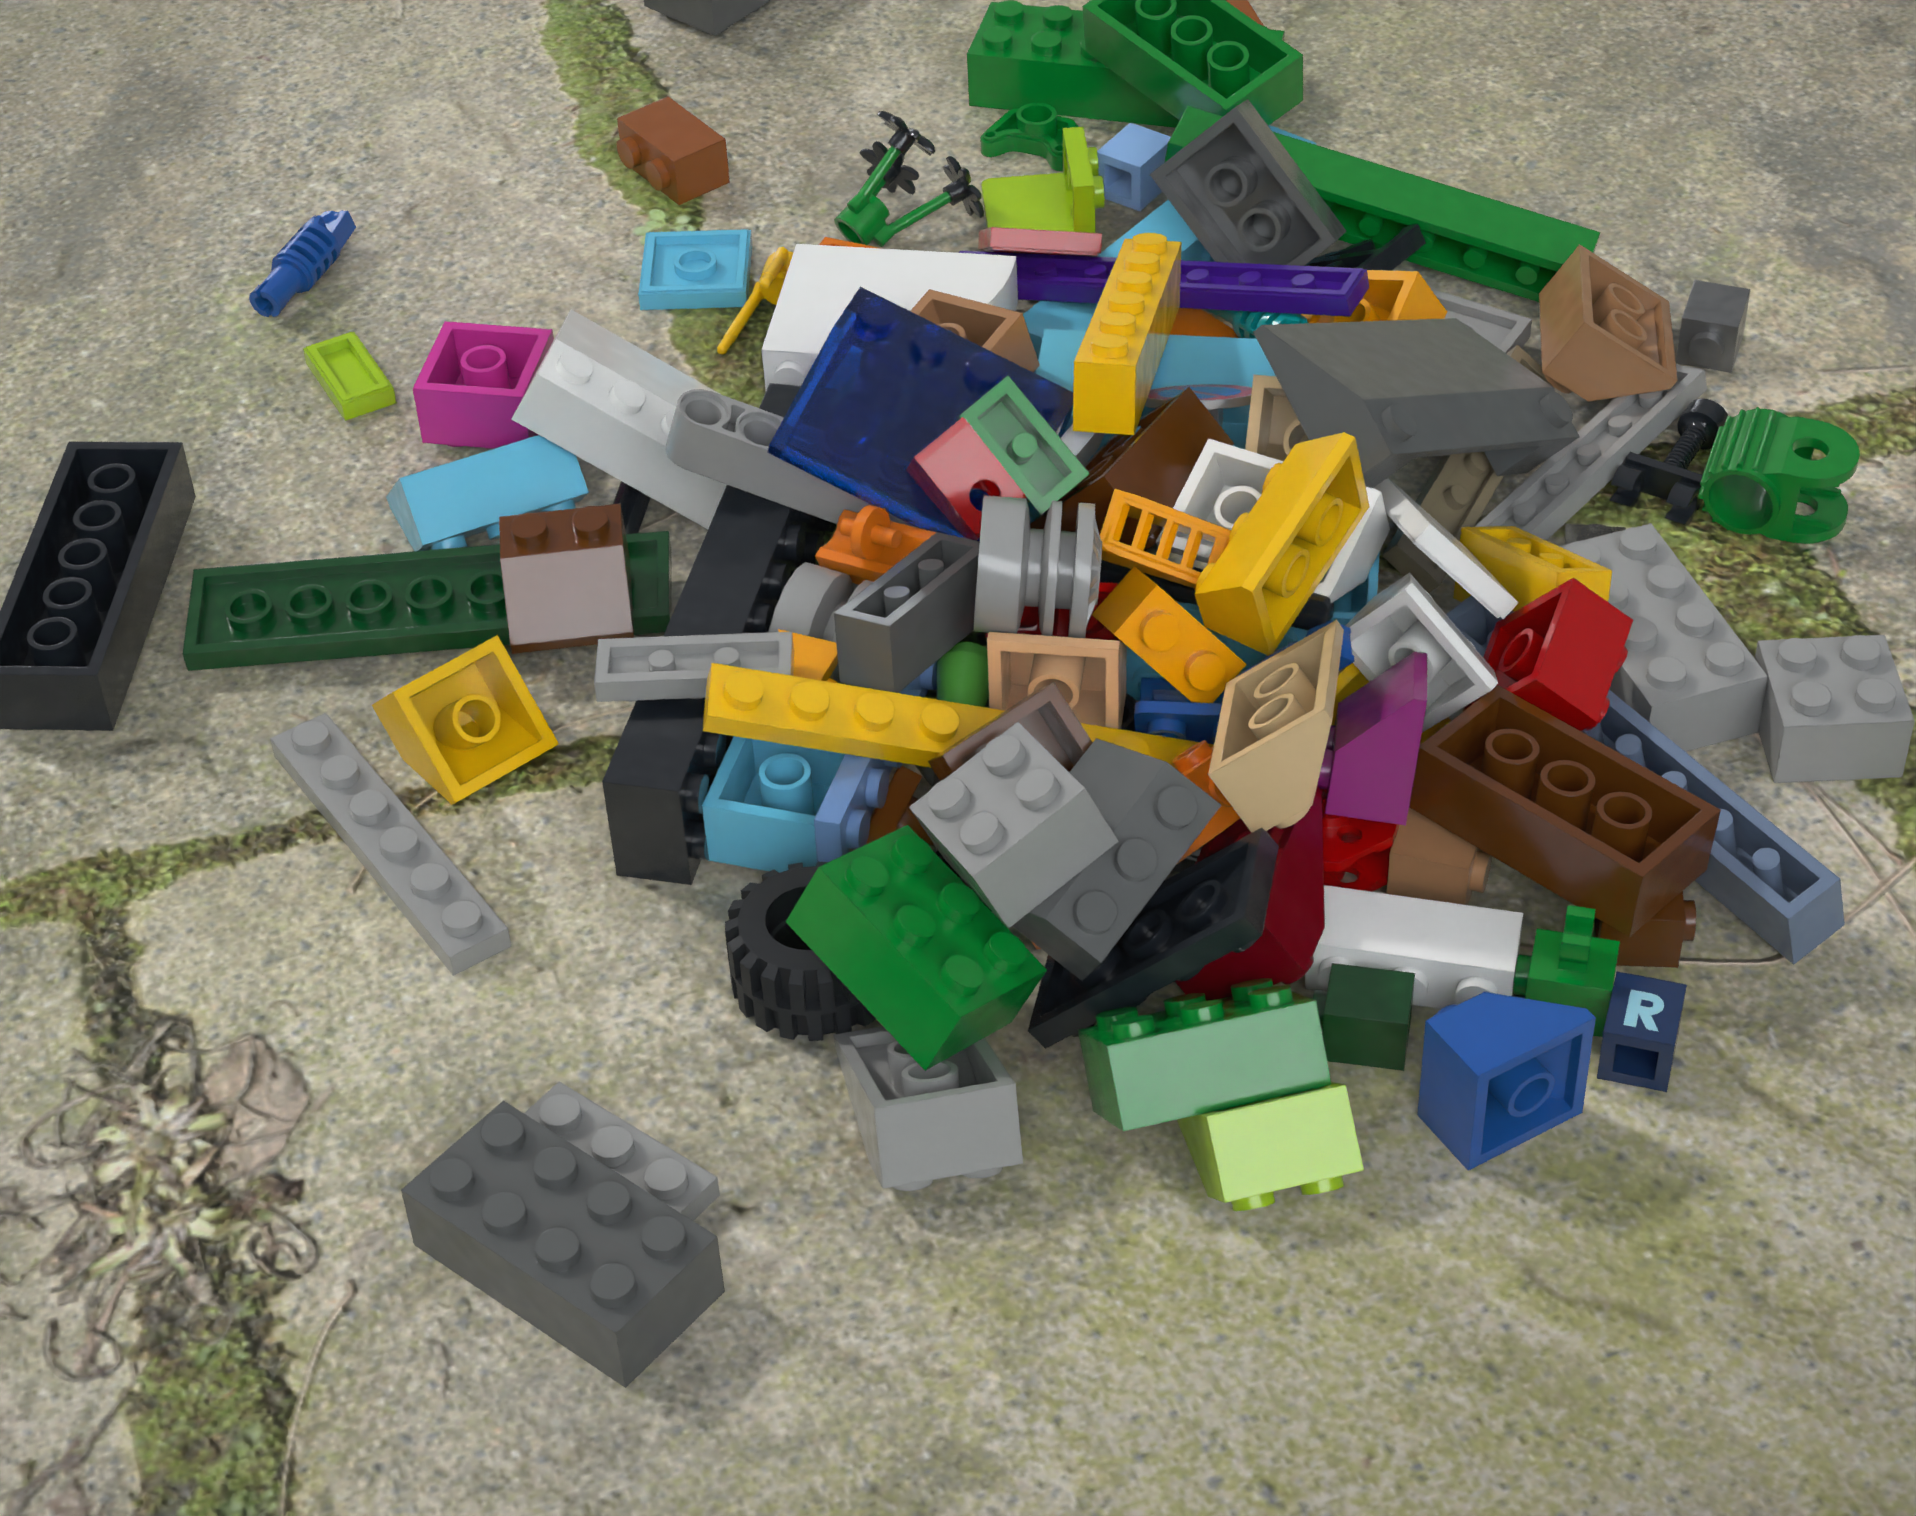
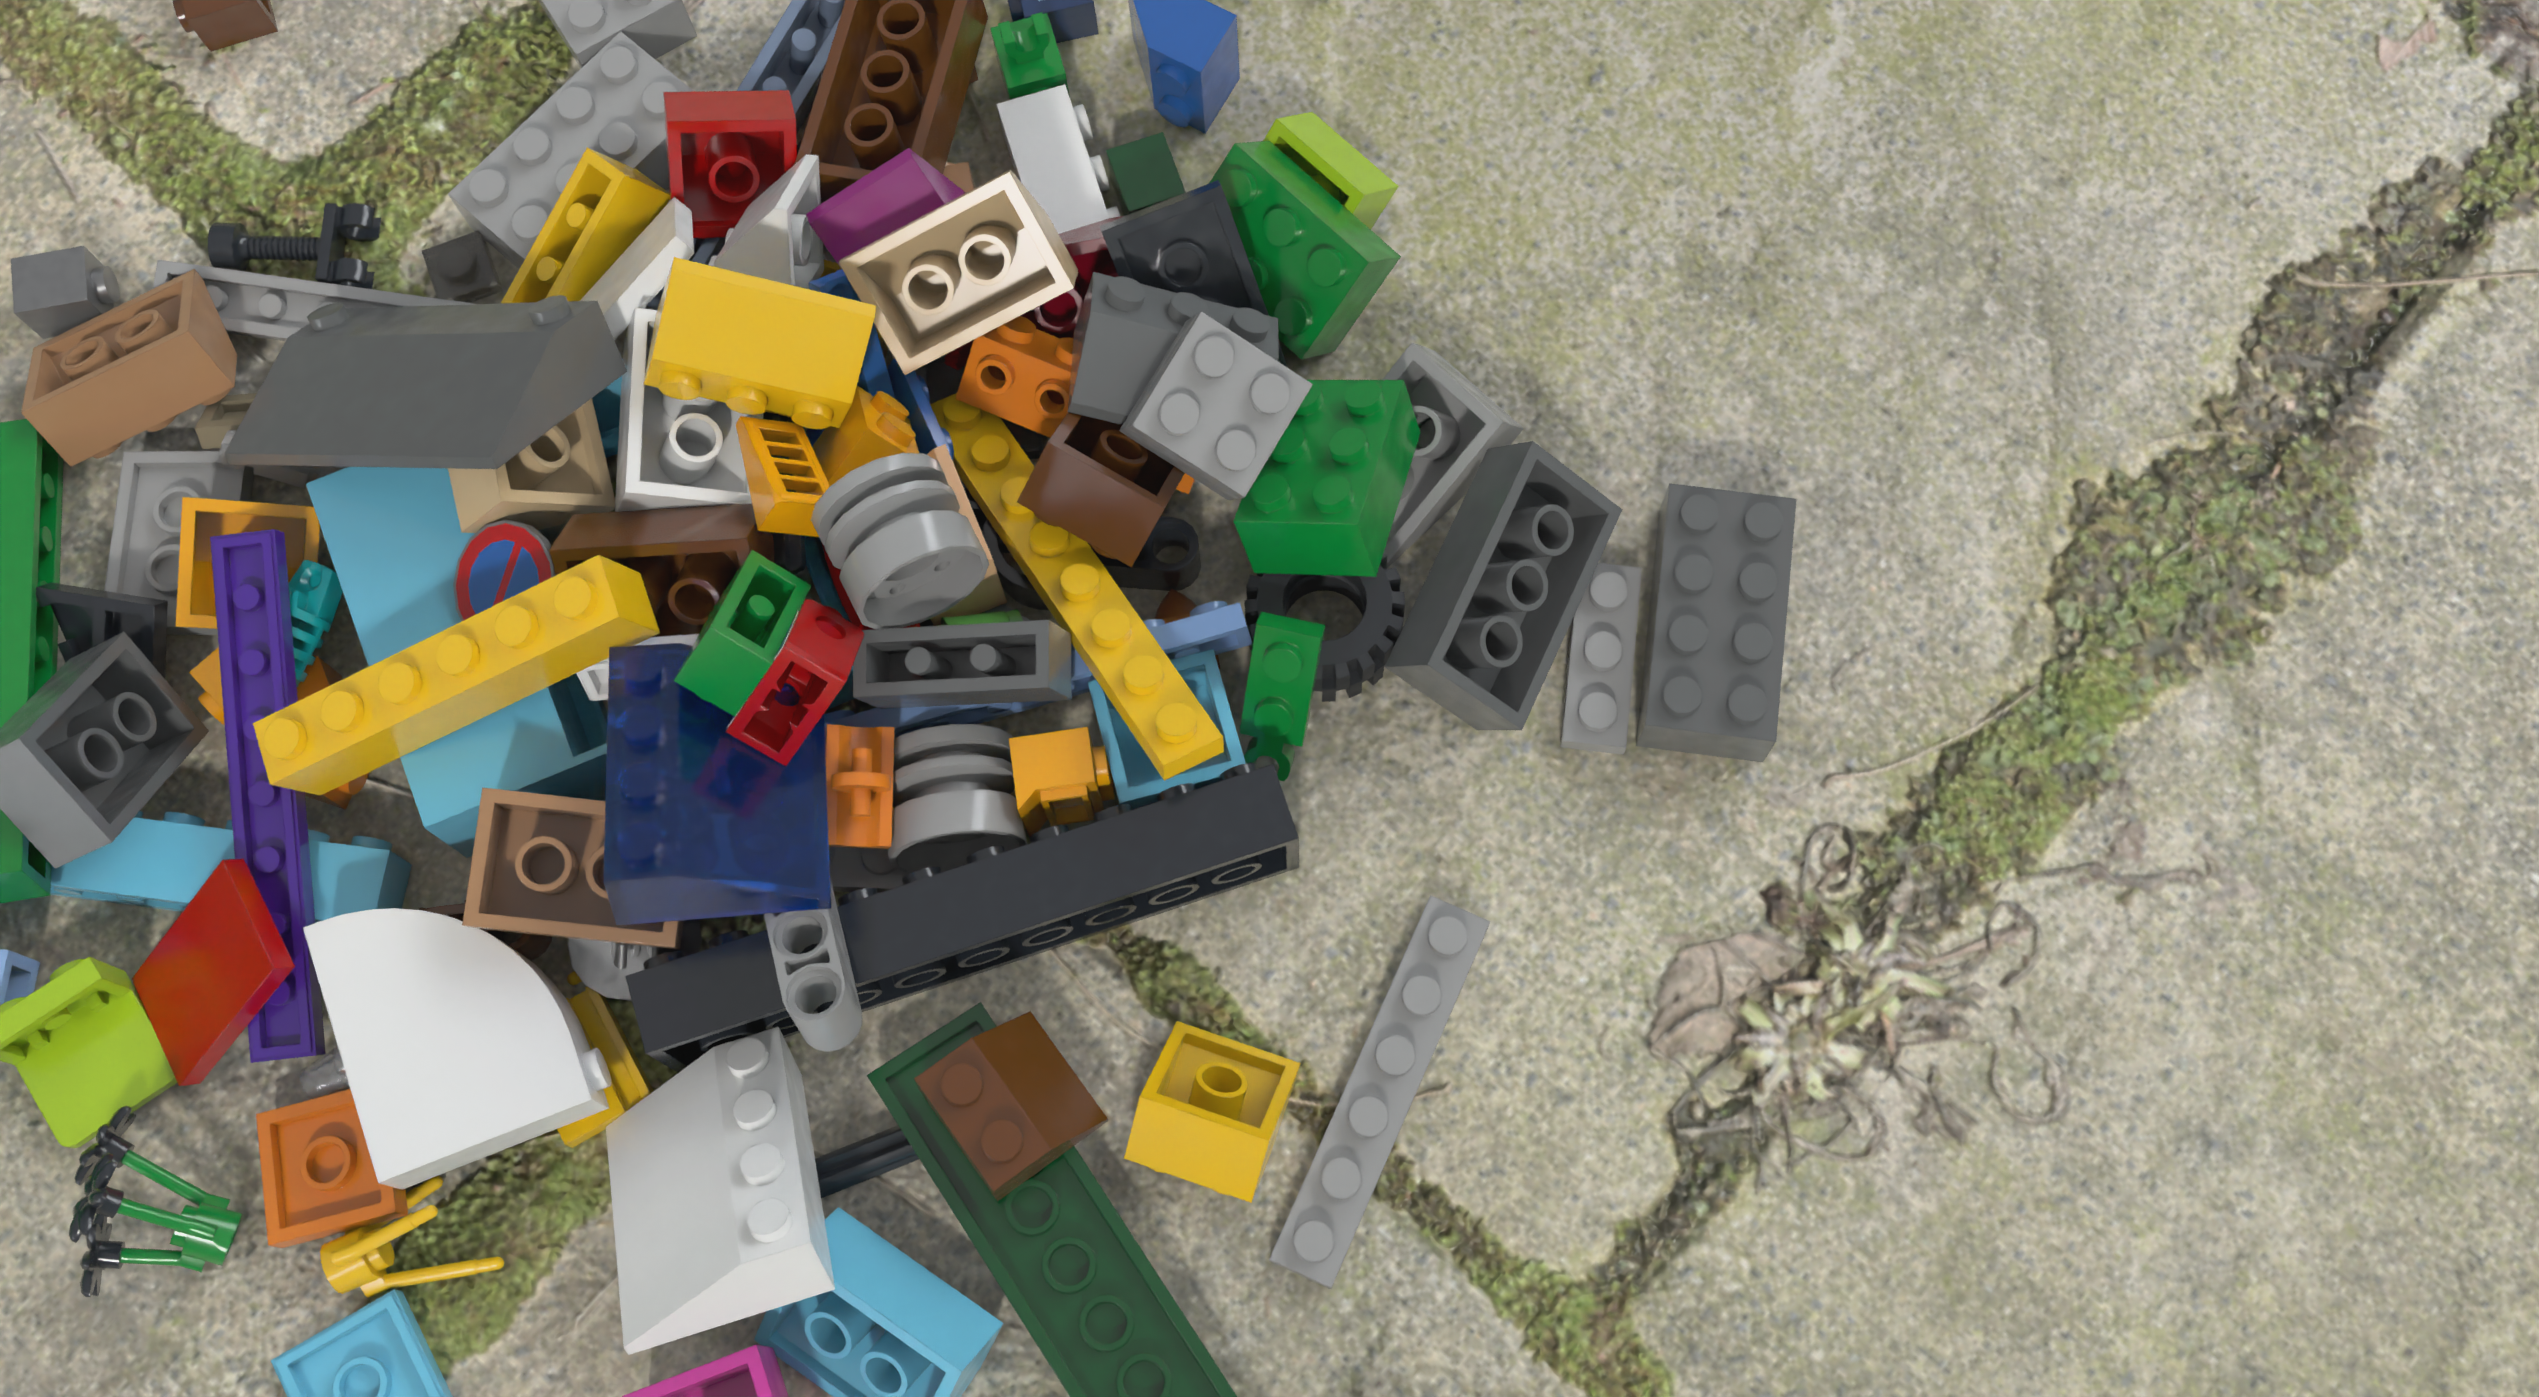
camera: 120 degrees left, 30 degrees up
(680, 664) = (1131, 828): light grey plate -> none
(723, 1069) = (1504, 587): none -> dark grey brick
(756, 856) = (1280, 688): none -> green plate
(1766, 467) = (304, 151): green piece -> none

